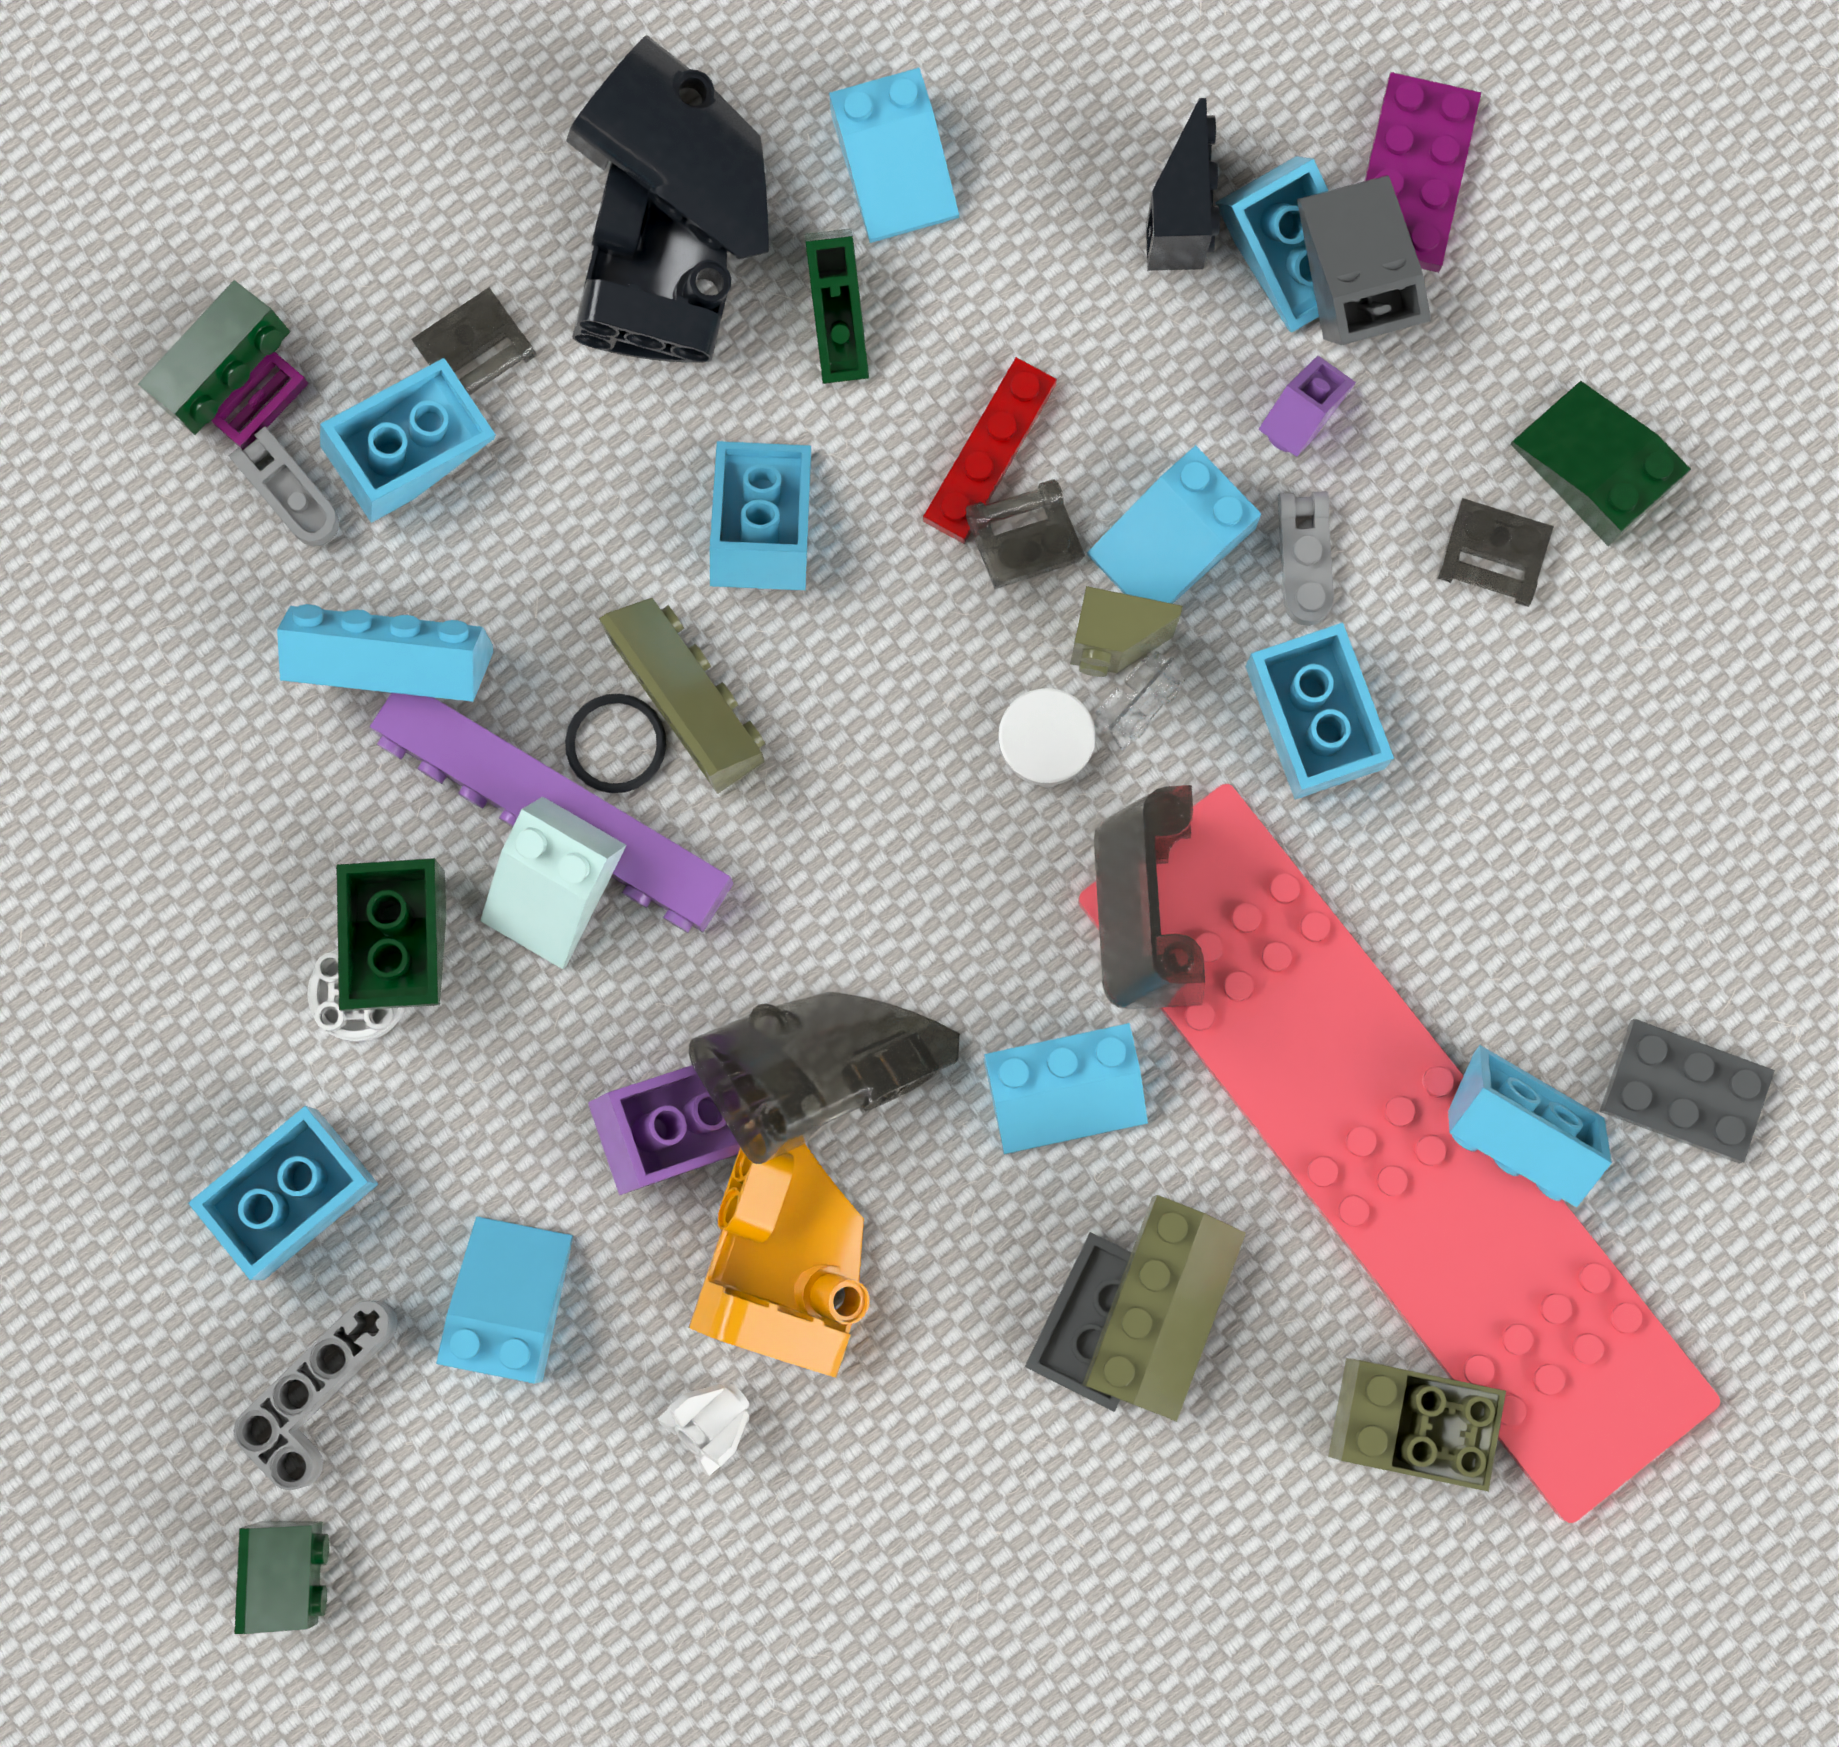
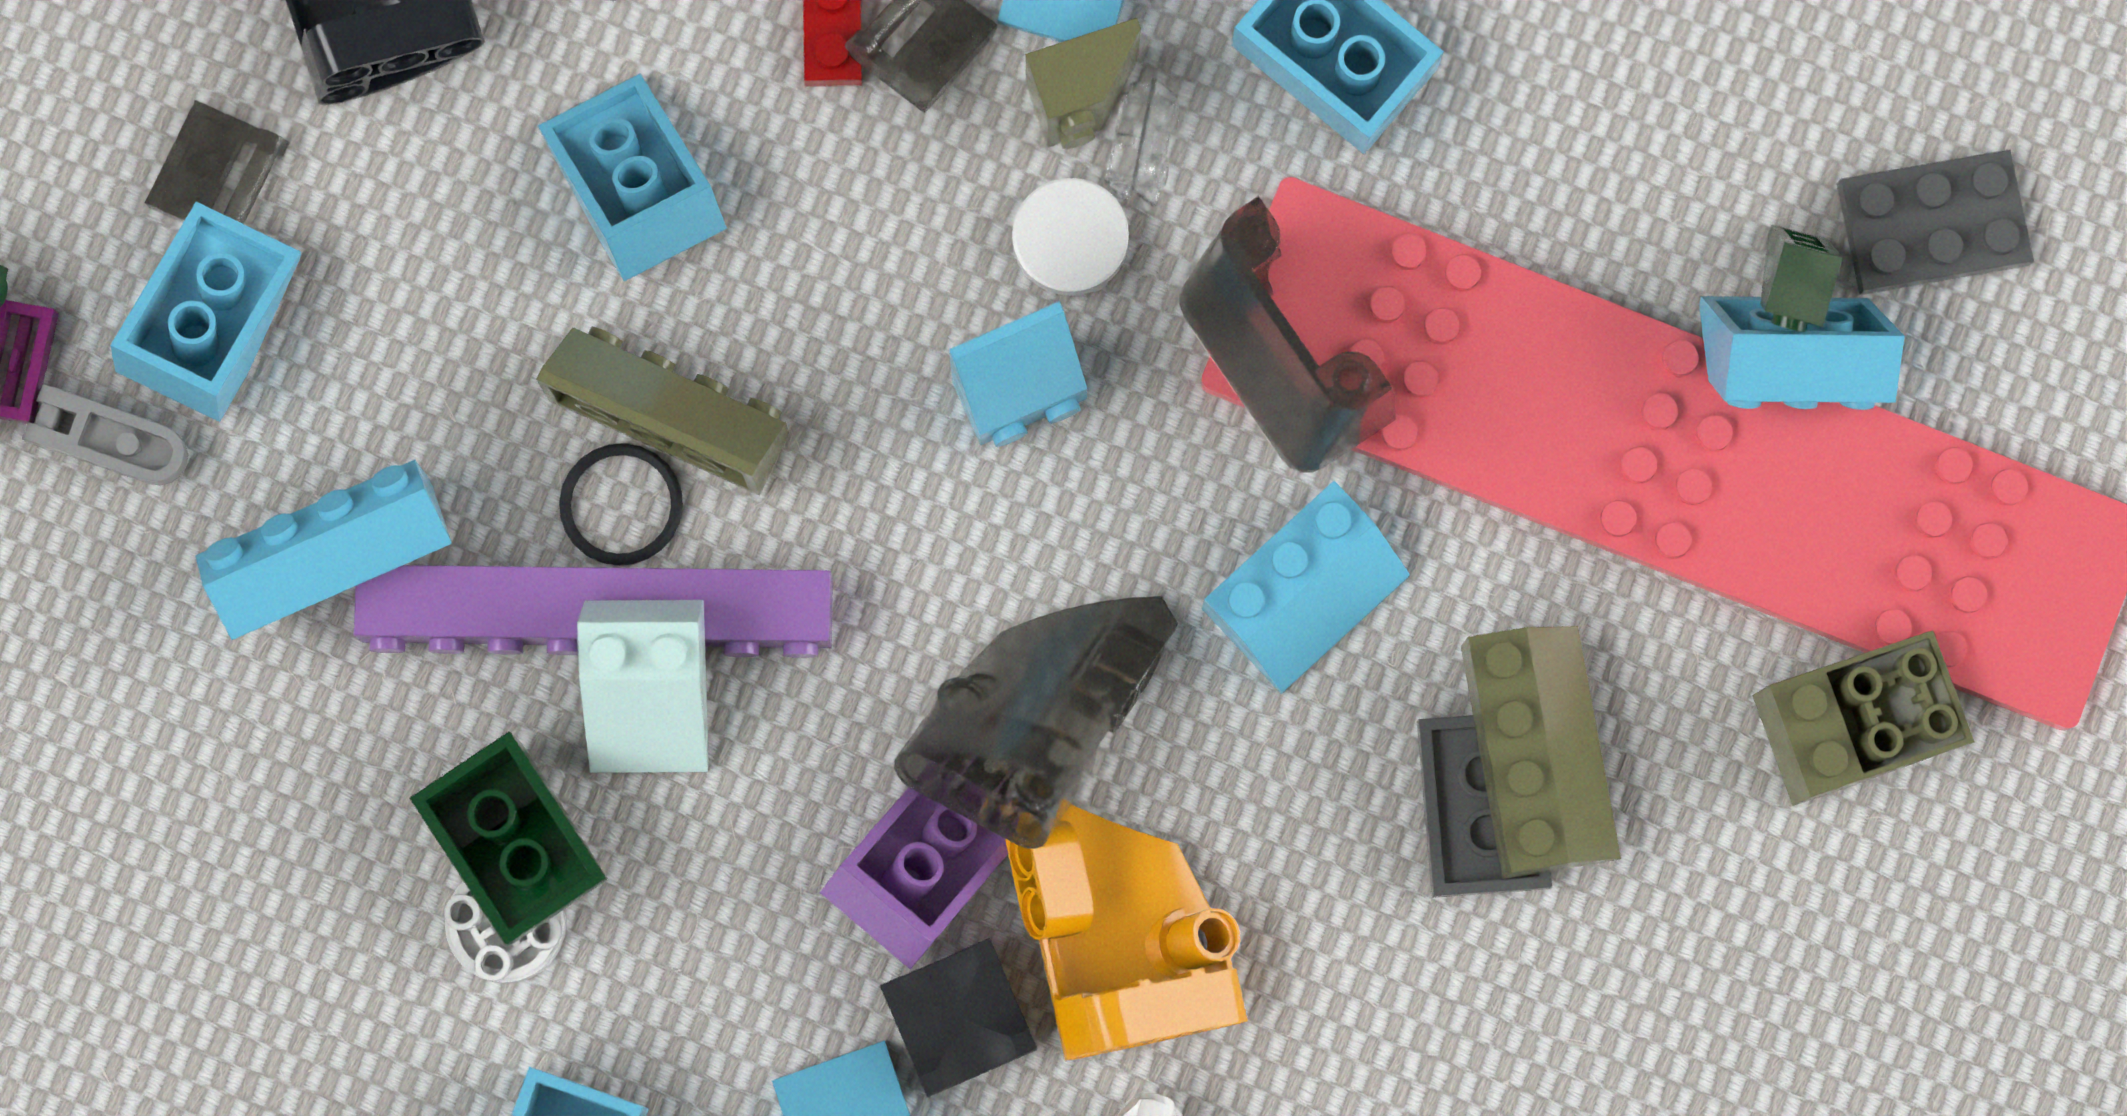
camera: 35 degrees left, 0 degrees up
(632, 1251) = (958, 1017): none -> black brick
(945, 815) = (1019, 376): none -> medium azure slope
(1558, 1074) = (1798, 278): none -> dark green slope

